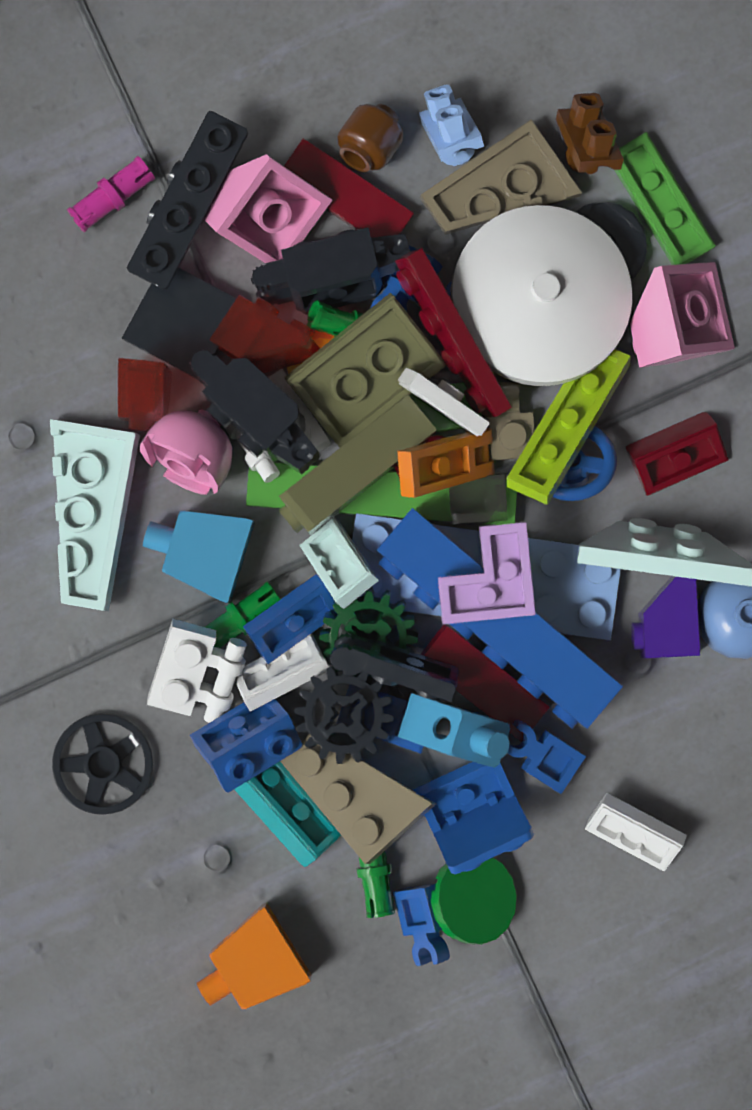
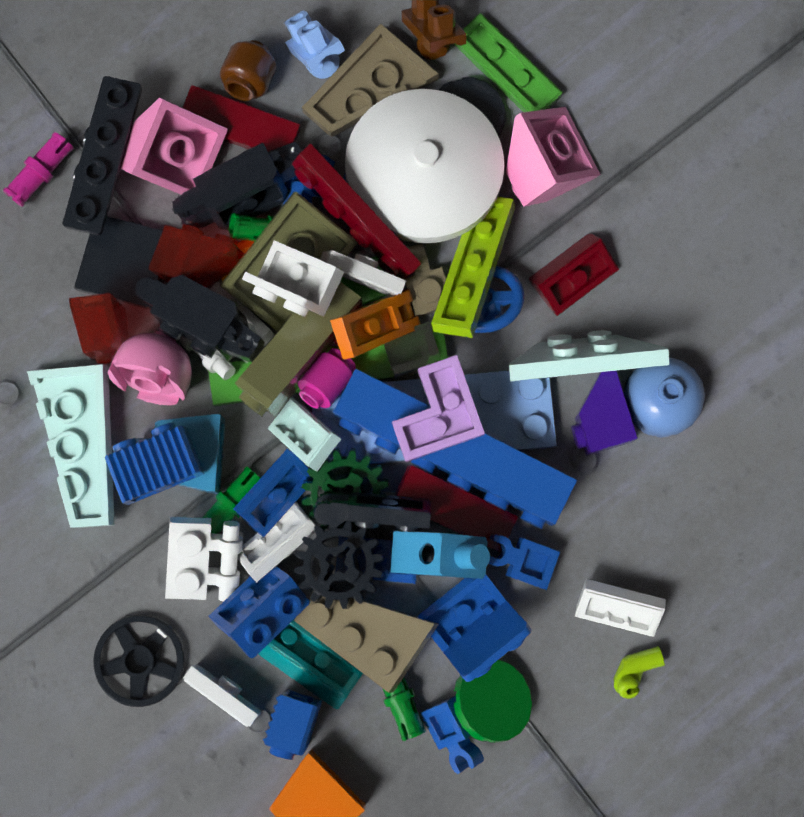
camera: 10 degrees left, 5 degrees down
(169, 559) = (154, 463): none -> blue brick
(187, 822) = (223, 693): none -> white plate
(254, 872) = (292, 724): none -> blue brick
(371, 395) = (297, 278): none -> white bracket
(376, 509) = (326, 379): none -> dark pink brick
(632, 900) = (632, 669): none -> lime arm

